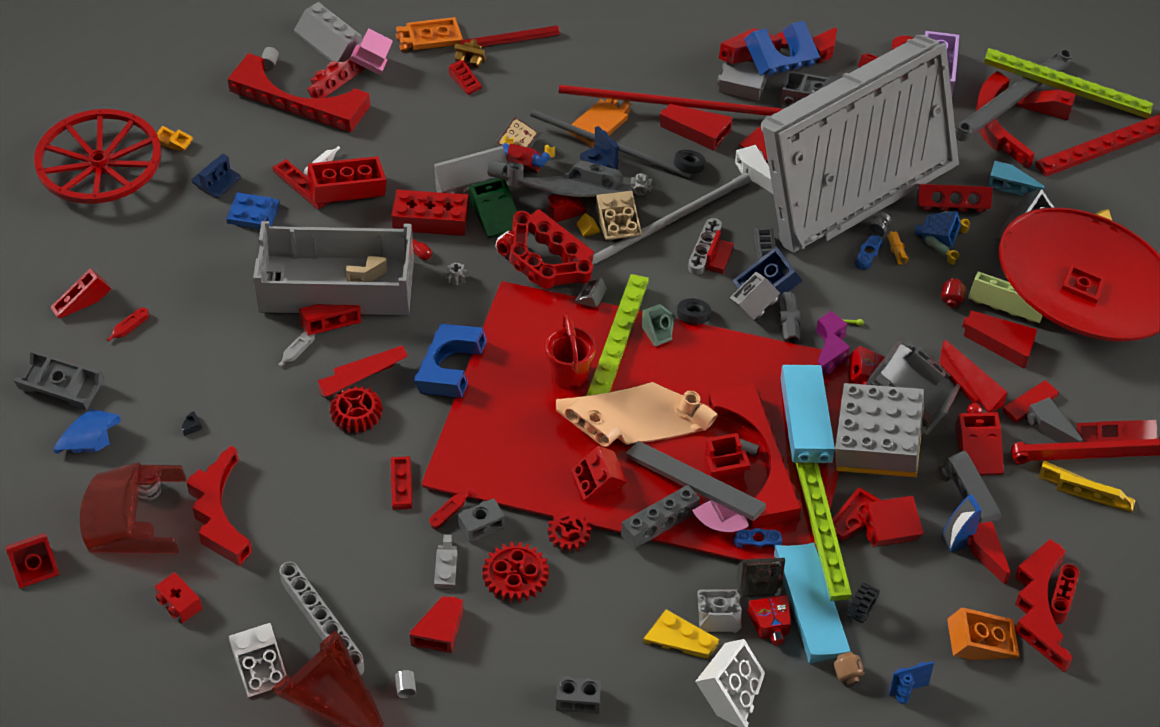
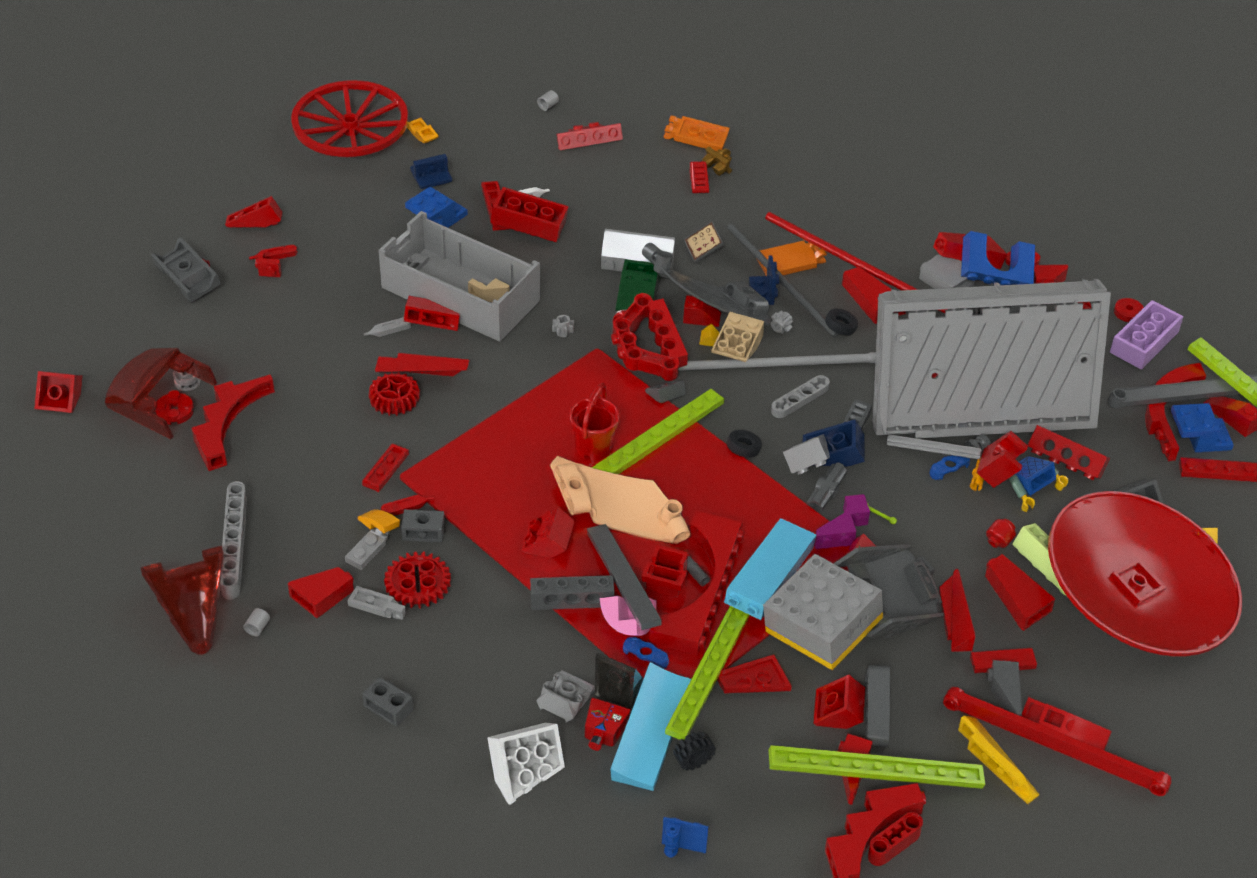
camera: 30 degrees right, 5 degrees down
(87, 432) = (173, 318): blue slope -> none
(135, 341) = (268, 267): none -> red bracket
(162, 511) = (171, 400): none -> red plate
(178, 598) = (139, 470): red brick -> none
(191, 424) = (259, 348): black tile -> none
(258, 659) = (161, 541): white slope -> none
(327, 33) = (611, 100): light grey slope -> none
(337, 111) = (568, 161): red arch -> none
(372, 51) = (632, 125): bright pink plate -> none
(421, 250) = (551, 296): red cylinder -> none
(431, 212) = (580, 269): red brick -> none
(436, 533) = (379, 519): none -> light orange slope
(448, 341) = (514, 373): blue arch -> none
(496, 612) = (376, 603): none -> light grey hinge
(515, 36) = (771, 163): red axle -> none
(526, 156) = (695, 259): torso -> none
(567, 528) = (490, 568): red gear -> none
(658, 324) = (702, 438): sand green slope -> none
(680, 634) = (516, 698): yellow wing -> none
(718, 254) = (806, 406): red panel -> none
(847, 241) = (934, 446): none -> light grey axle
(849, 668) = (639, 799): medium nougat head -> none
(892, 521) = (777, 696): red brick -> none
(911, 230) = (999, 458): none -> red piece
(937, 502) = (840, 704): none -> red slope
(962, 524) = (838, 727): slope -> none
(981, 438) = (920, 670): red slope -> none
(982, 635) = (787, 836): orange slope -> none
(1012, 180) = (1139, 462): medium azure slope -> none
(1012, 542) = (876, 767): none -> lime plate
(1037, 127) = (1202, 427): none -> blue bracket

